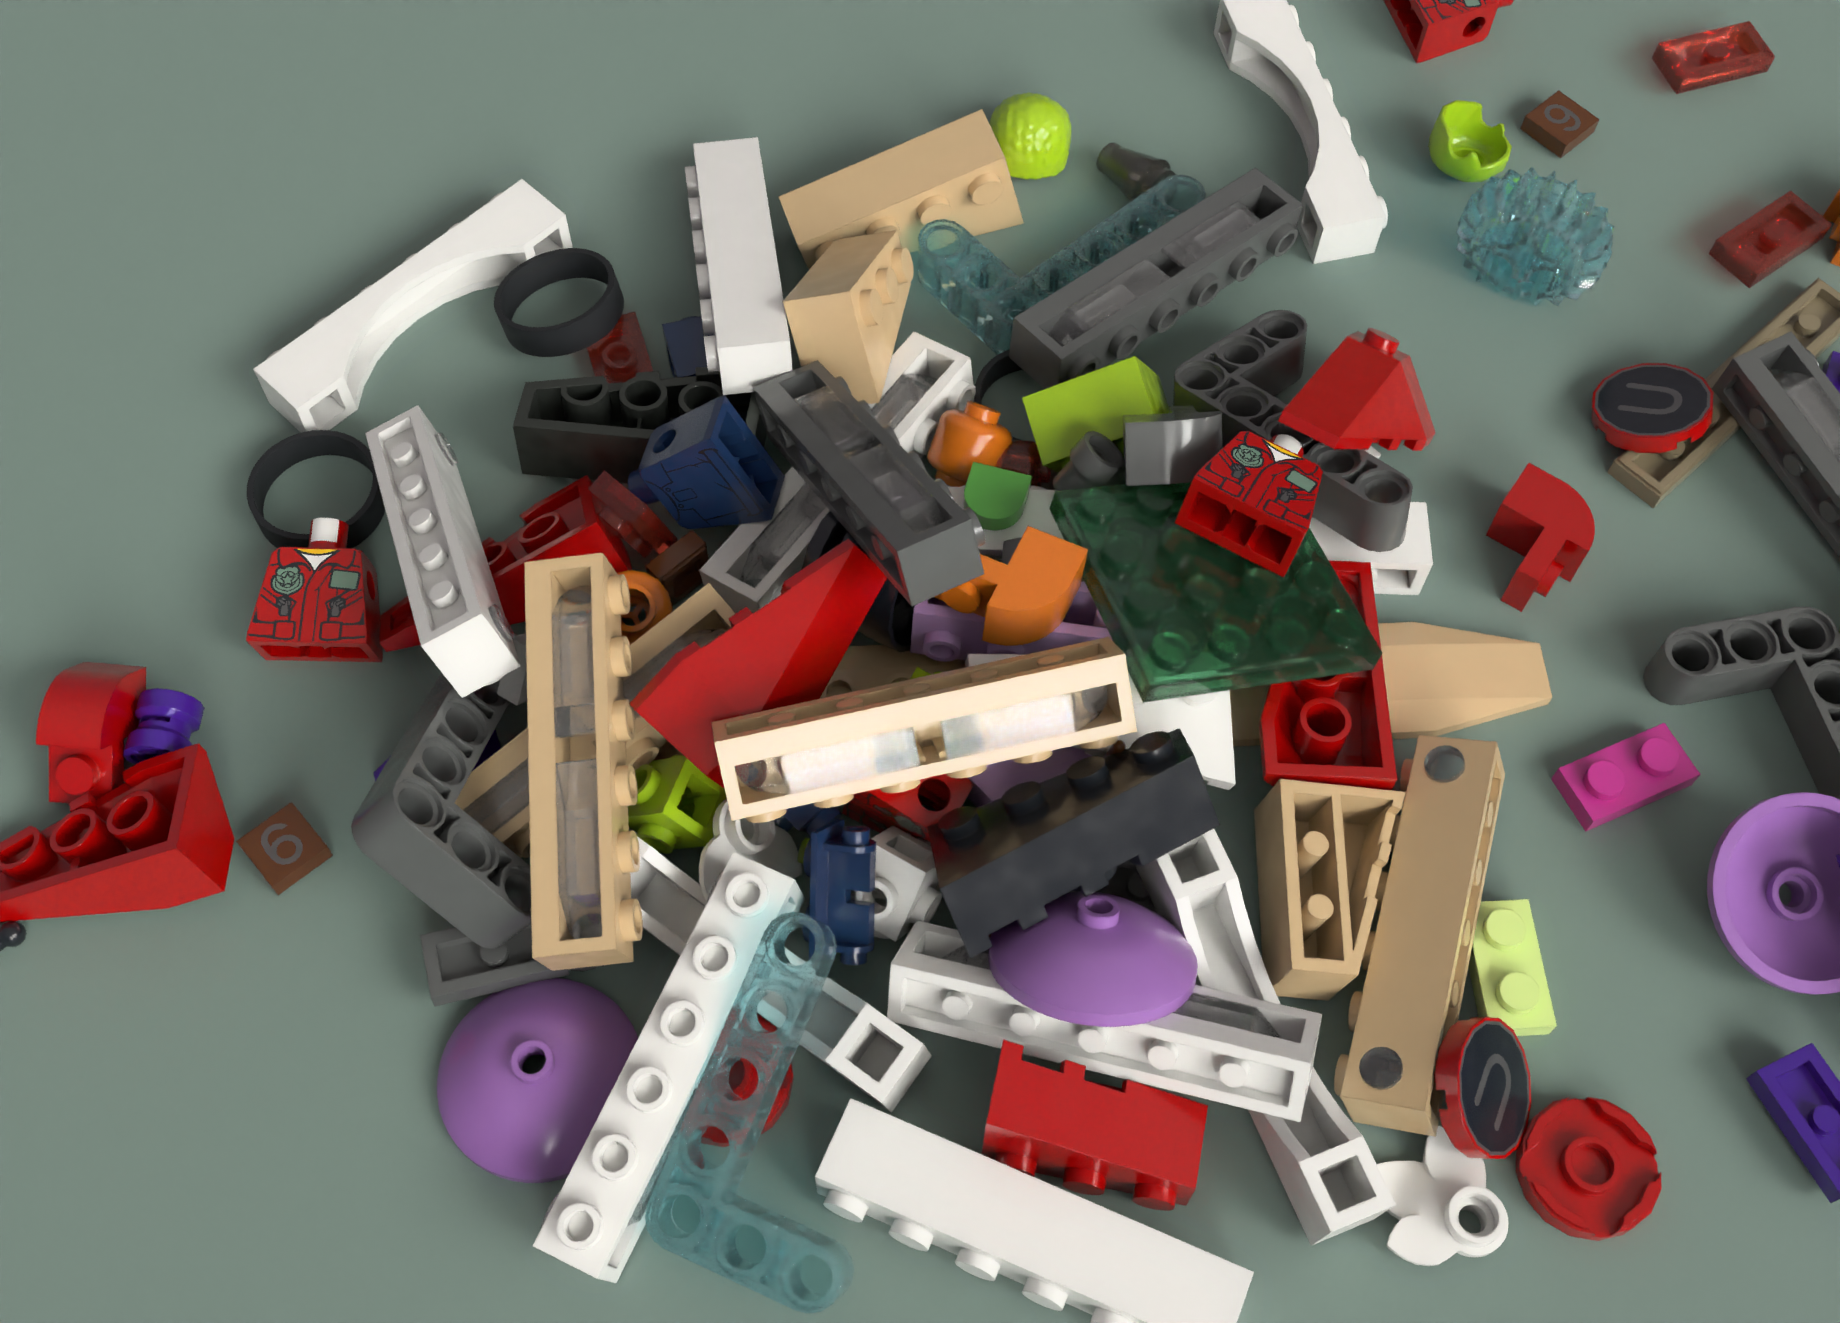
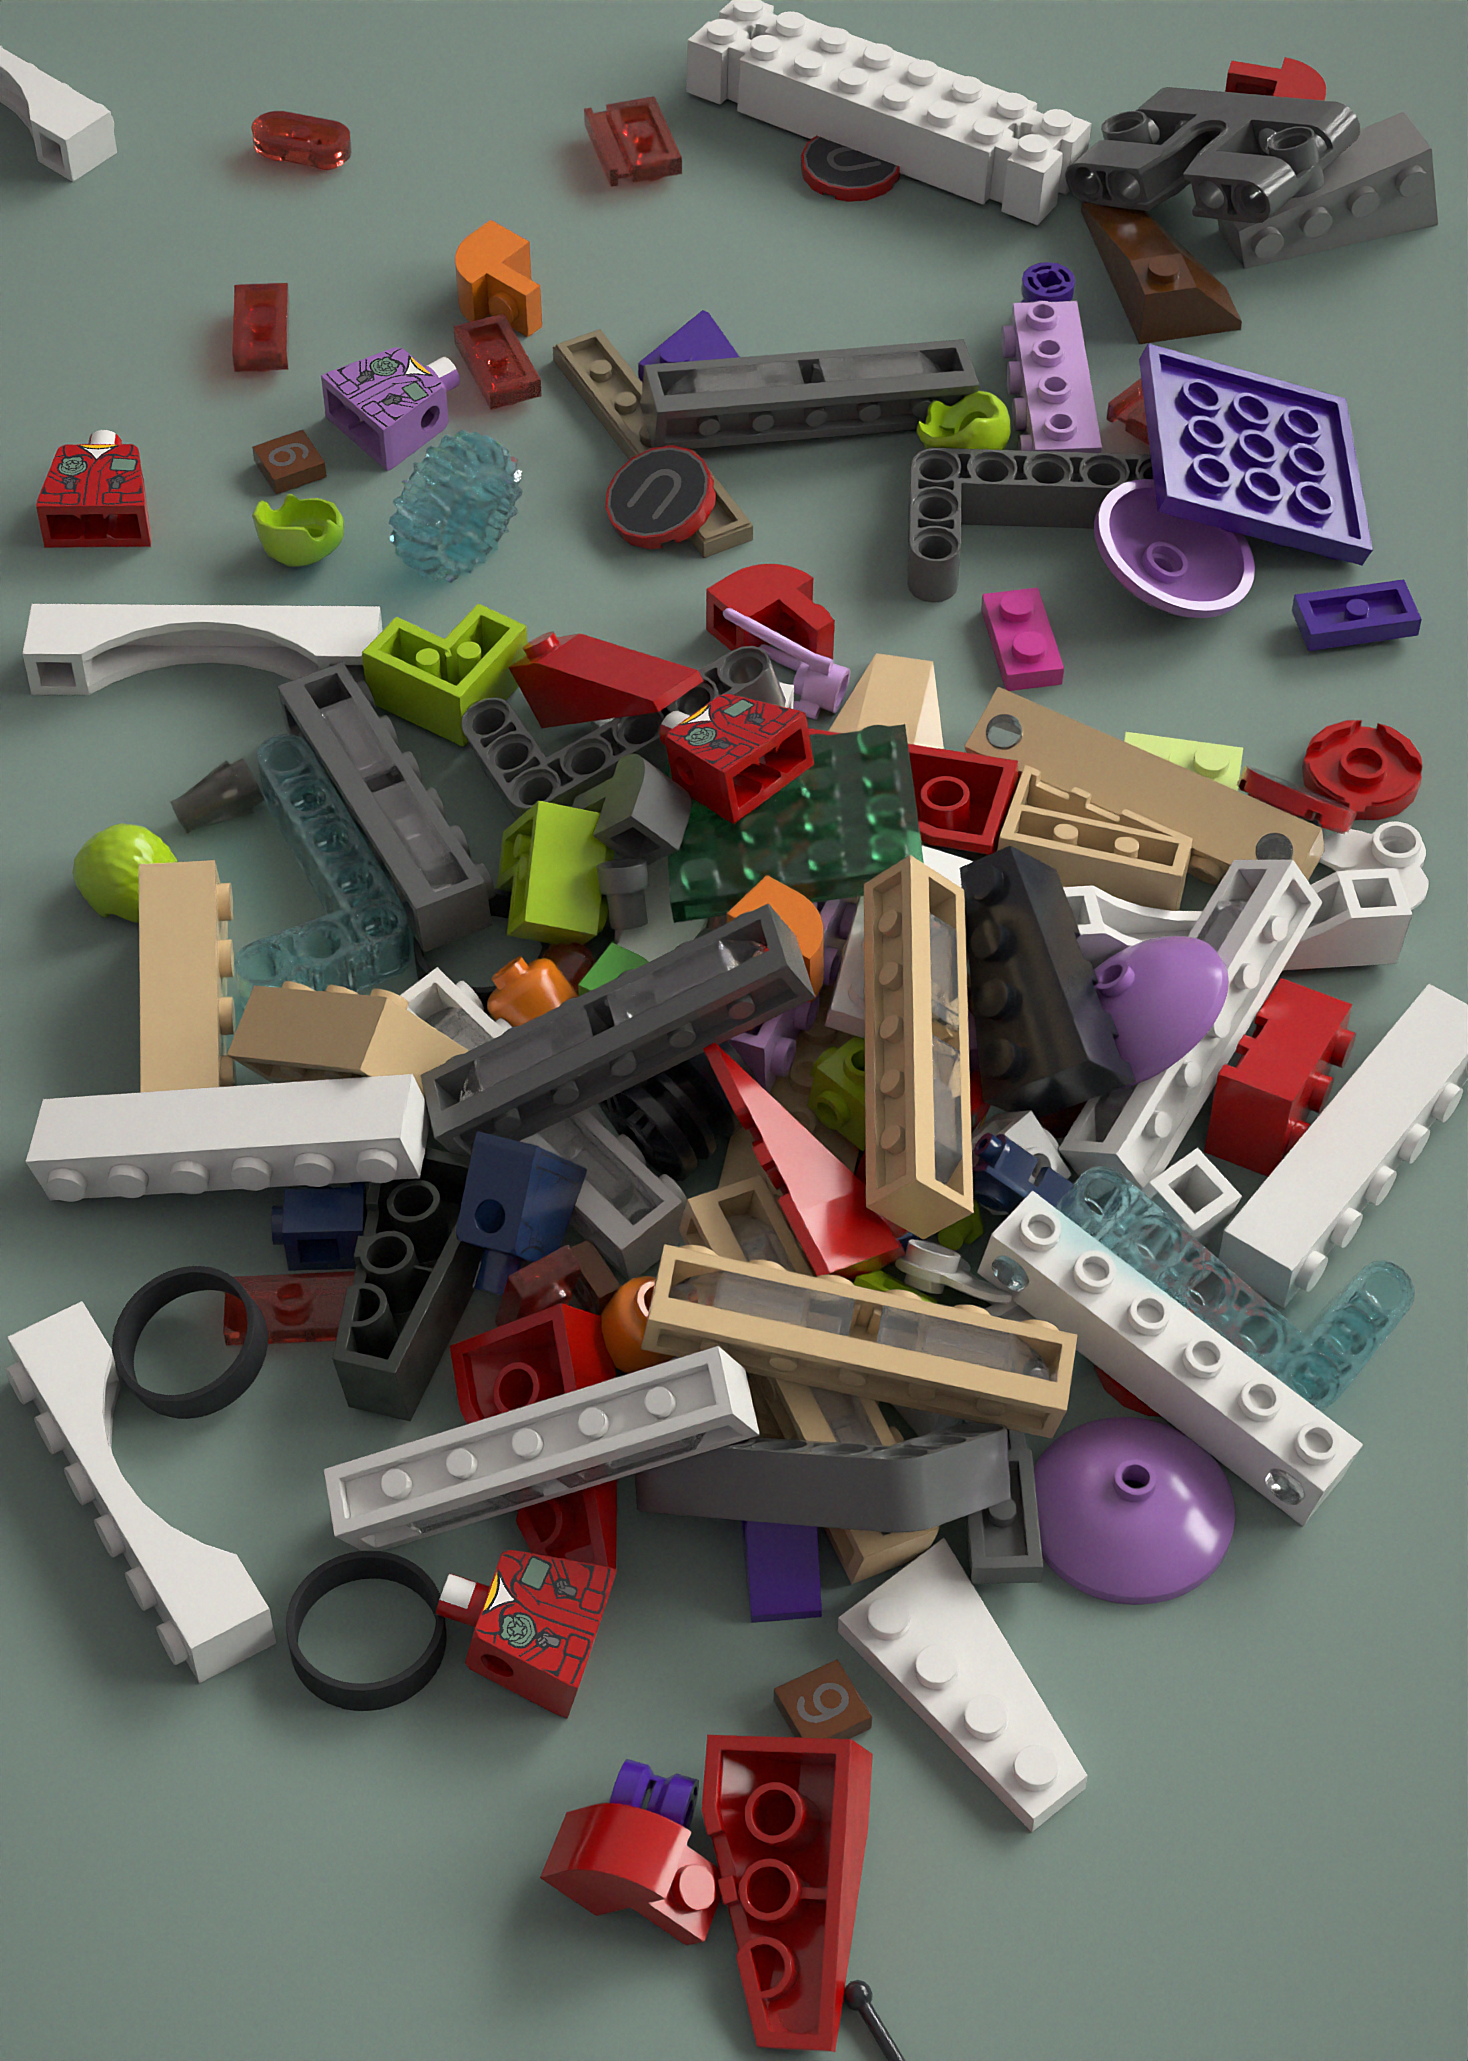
camera: 75 degrees left, 10 degrees down
(320, 964) = (961, 1677): none -> white wing
(1332, 290) = (440, 678): none -> lime brick
(1469, 598) = (817, 677): none -> lavender plant
(1666, 172) = (389, 403): none -> medium lavender torso

